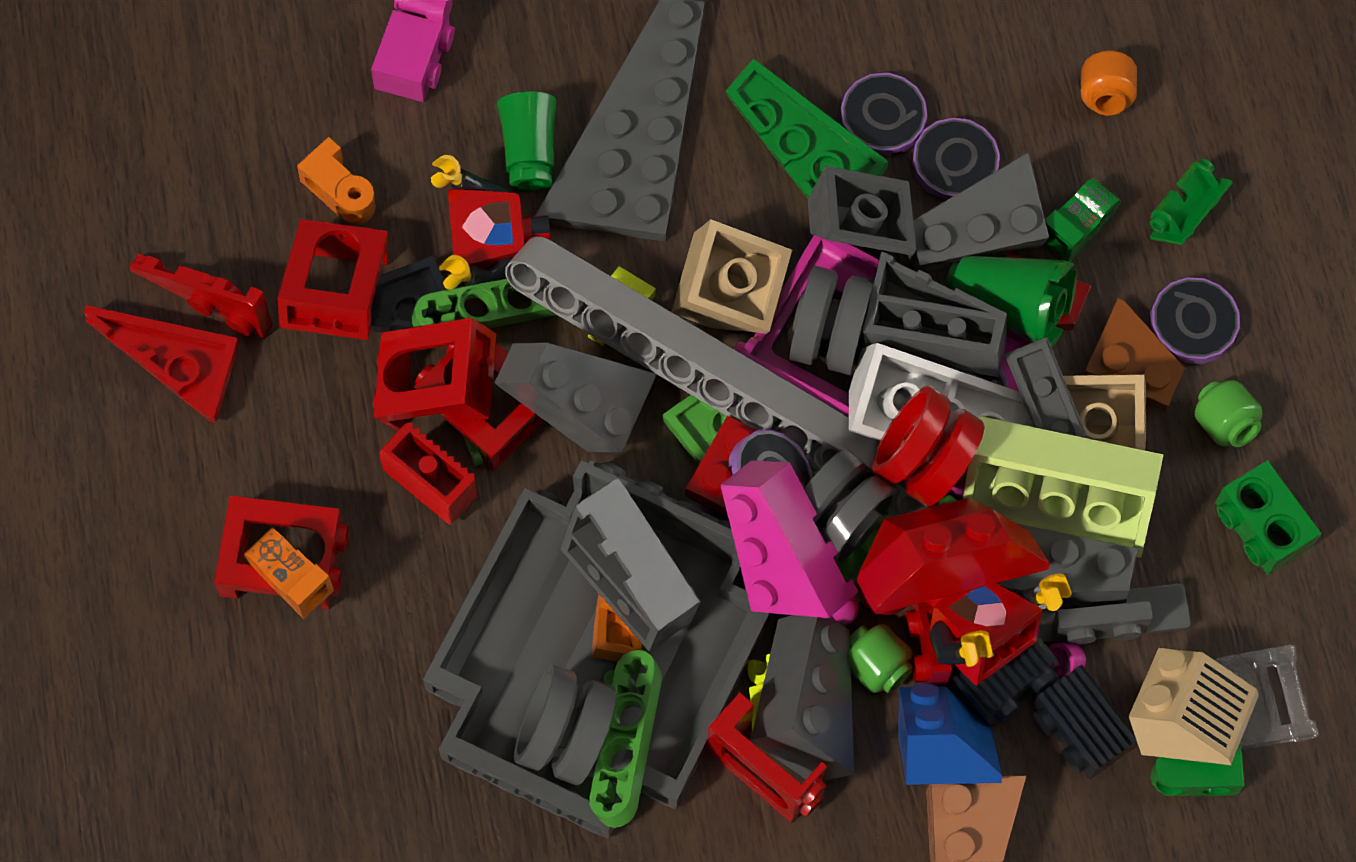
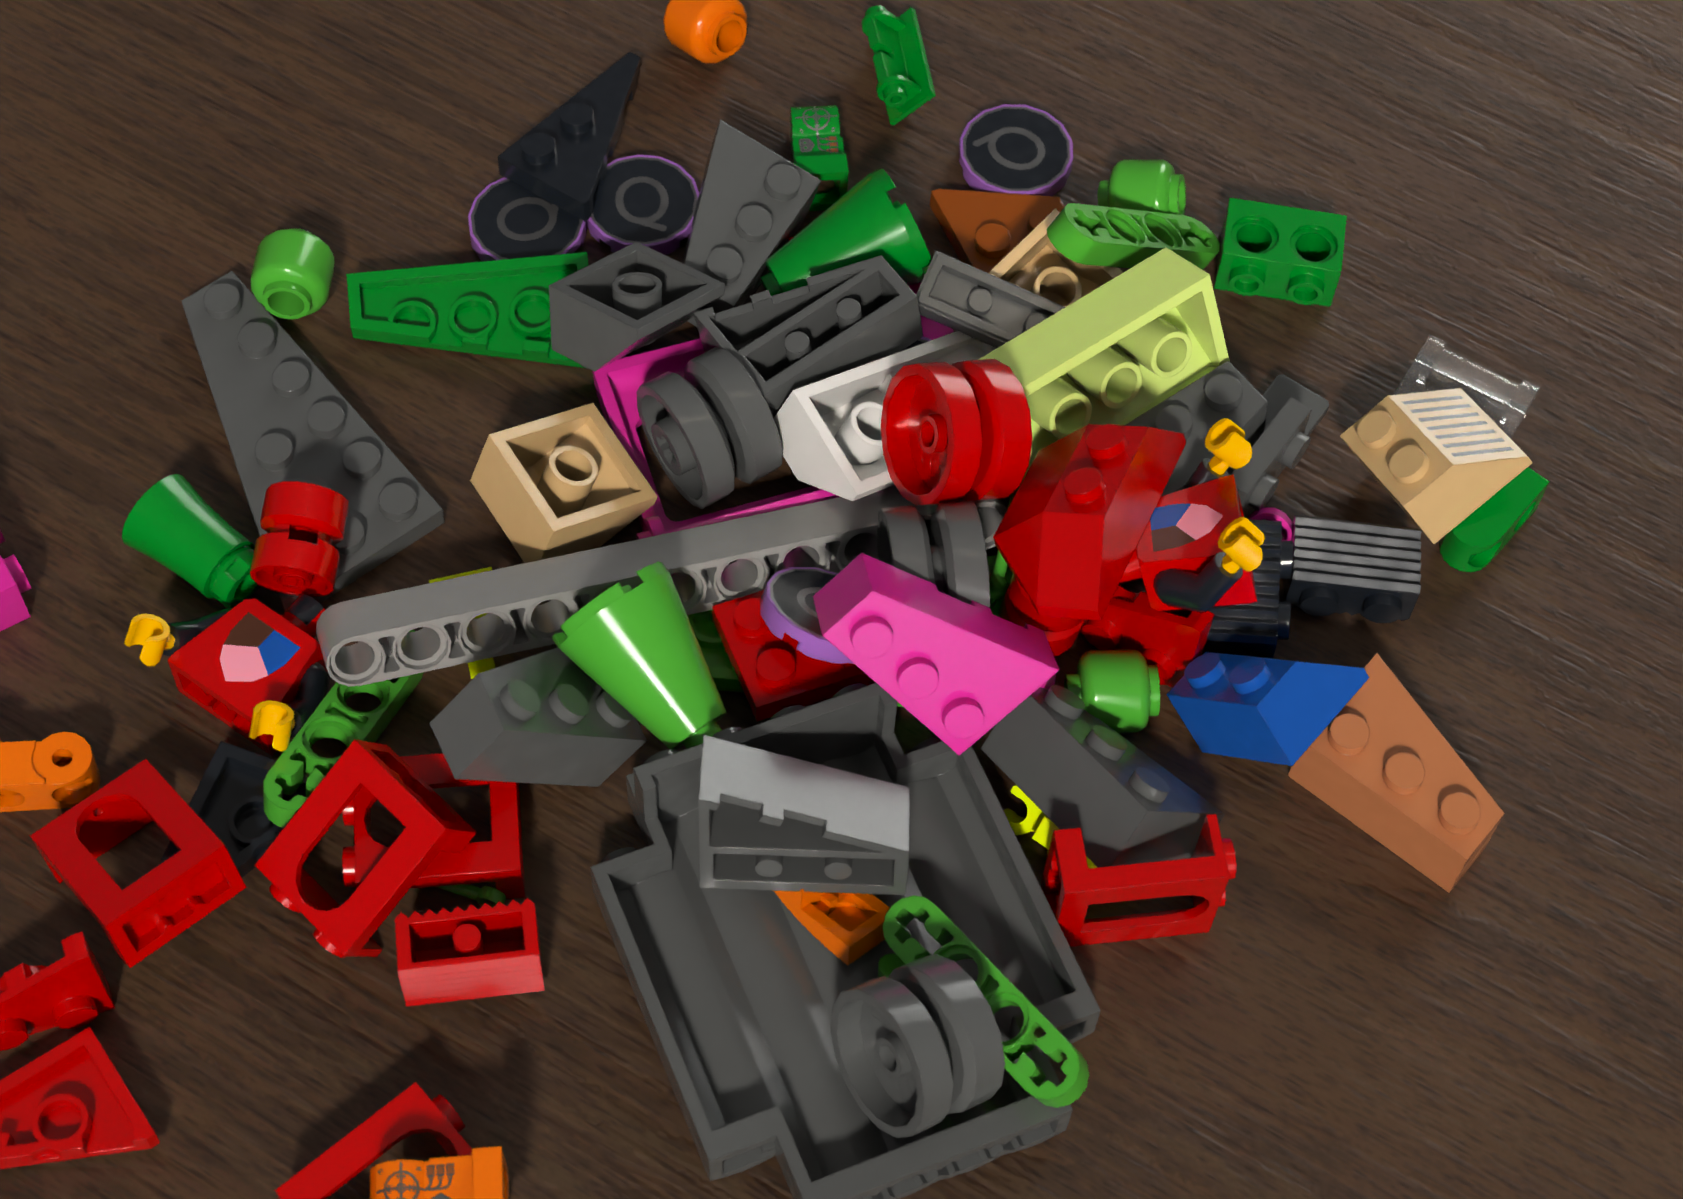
camera: 50 degrees left, 10 degrees down
(583, 179) = (299, 540): none -> red wheel
(651, 413) = (647, 658): none -> bright green cone
(729, 32) = (292, 273): none -> bright green head
(949, 90) = (571, 147): none -> black wing
(1179, 426) = (1128, 236): none -> bright green beam

